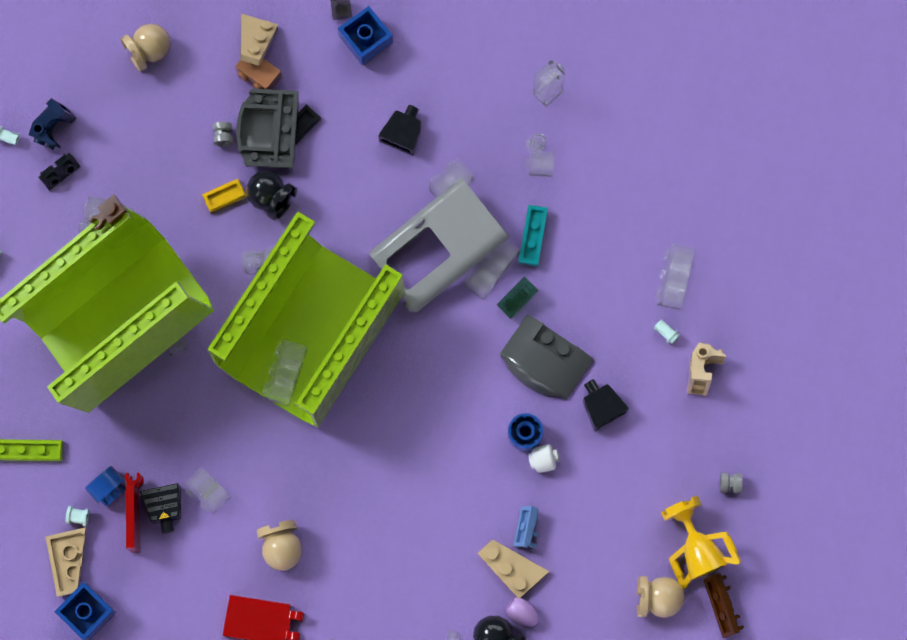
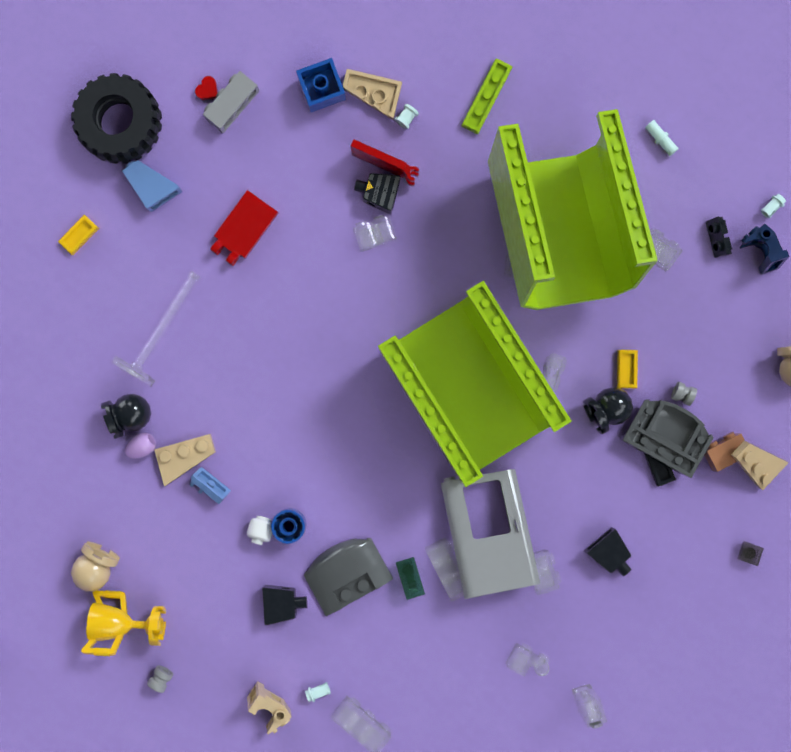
camera: 120 degrees right, 10 degrees up
(106, 486) = (418, 150): blue piece -> none
(110, 212) = (651, 249): plate -> none
(281, 547) = (294, 271): tan tile -> none
(285, 372) = (442, 345): clear brick -> none
(365, 35) = (714, 563): blue brick -> none
(533, 235) = (459, 619): teal plate -> none
(722, 605) = (59, 617): reddish brown plate -> none

